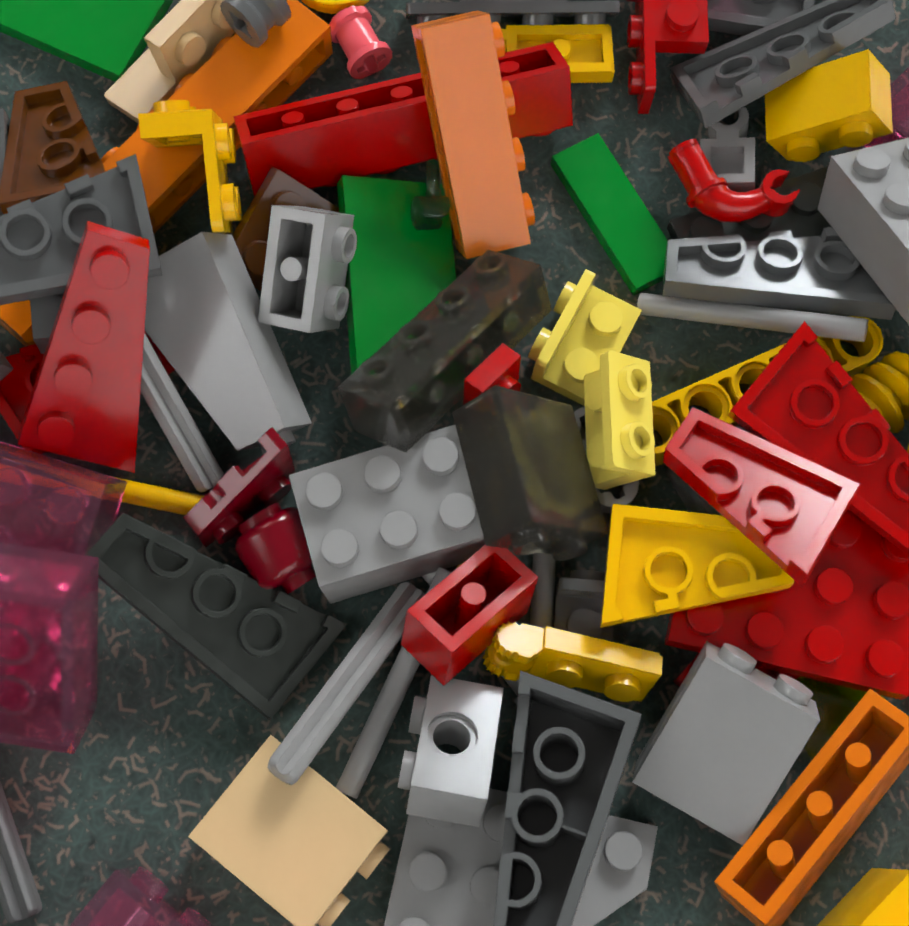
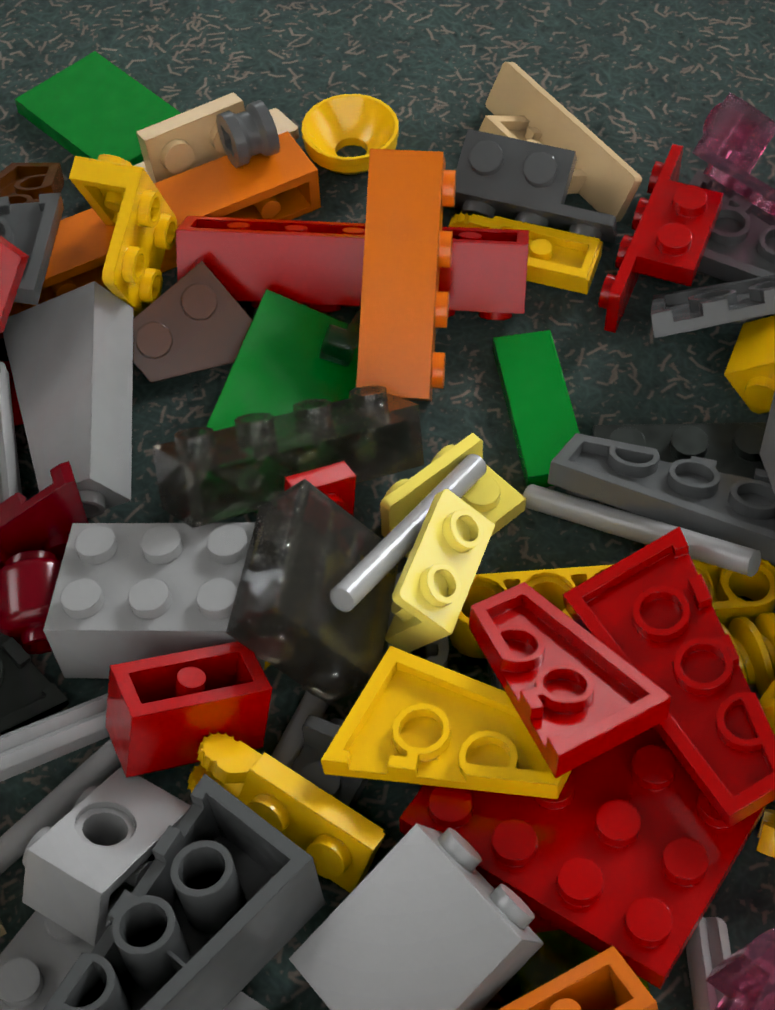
camera: 30 degrees right, 20 degrees down
(306, 268) = (186, 349): light grey brick -> none
(359, 42) = (344, 189): coral bush -> none
(582, 392) = (401, 538): none -> light grey bar
(715, 199) = (642, 407): red piece -> none
(732, 153) = (680, 388): light grey plate -> none

